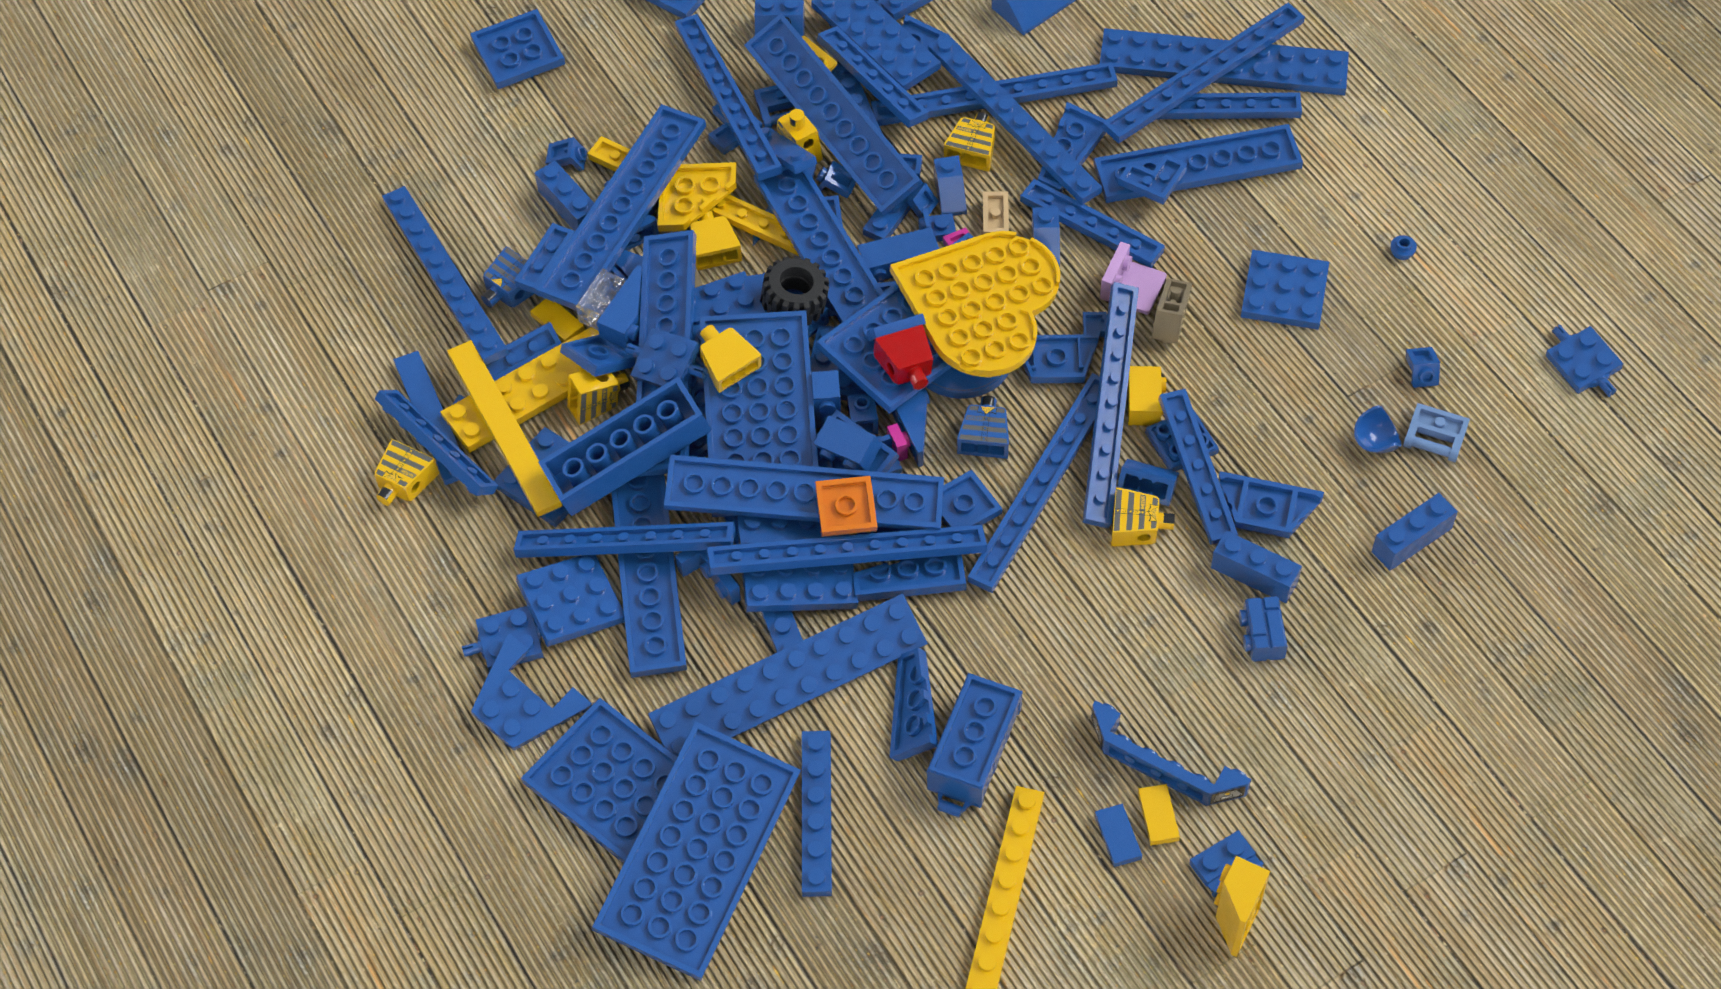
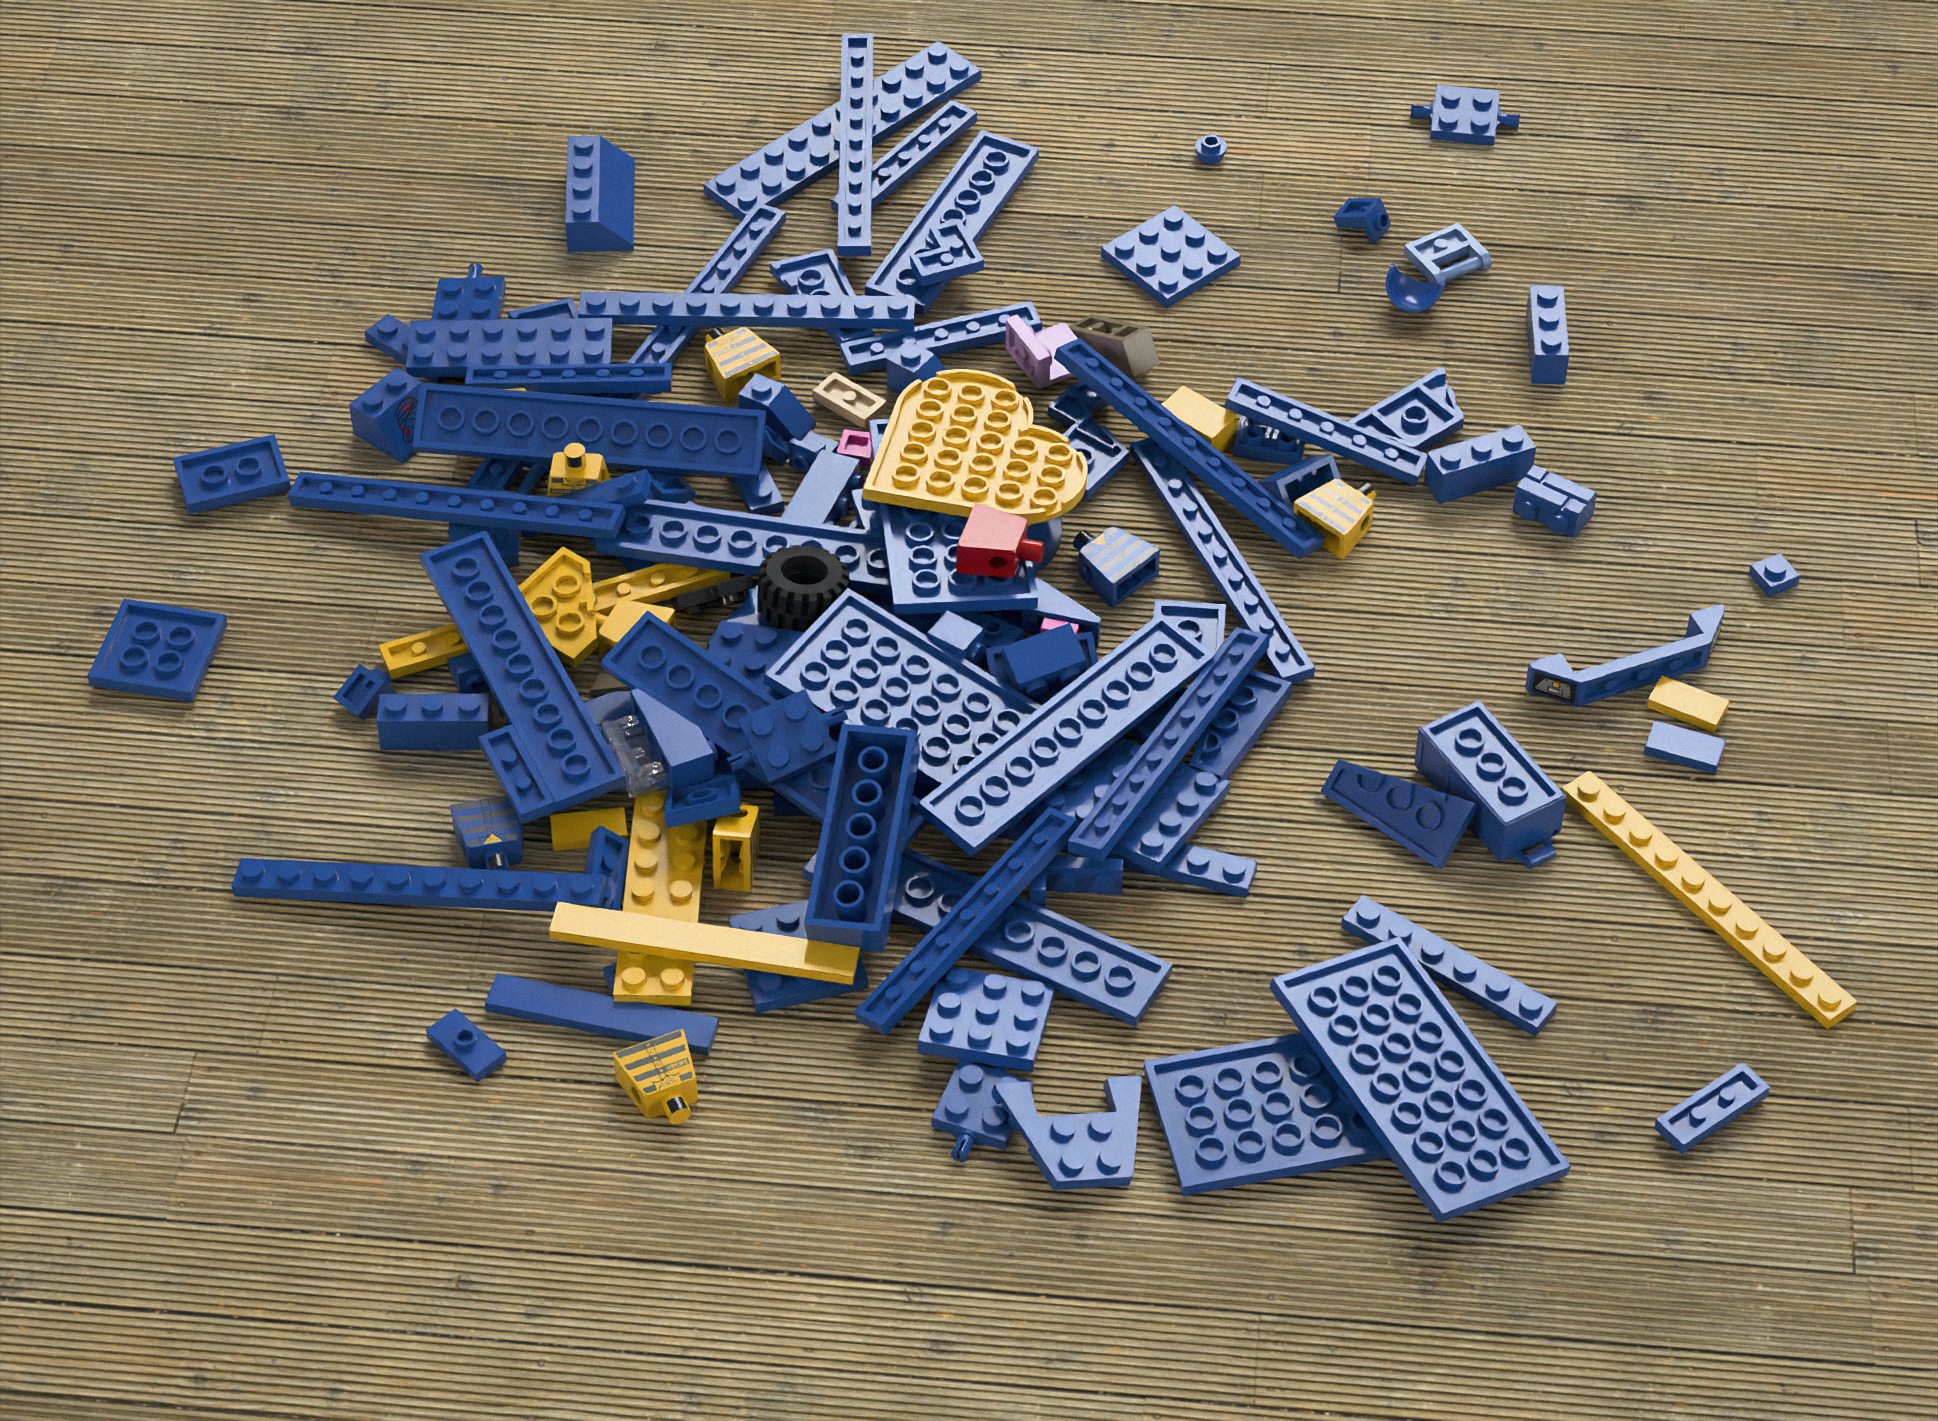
camera: 55 degrees left, 10 degrees down
(360, 372) = (466, 1045): none -> blue plate
(436, 442) = (639, 1021): blue plate -> none
(727, 356) = (846, 677): yellow torso -> none
(768, 251) = (725, 592): none -> black plate
(793, 675) = (1269, 889): blue plate -> none
(846, 506) = (1126, 702): orange plate -> none
(895, 326) = (949, 530): blue plate -> none
(1211, 862) = (1785, 688): blue plate -> none
(1239, 900) = (1860, 686): yellow slope -> none
(1325, 796) = (1774, 574): none -> plate

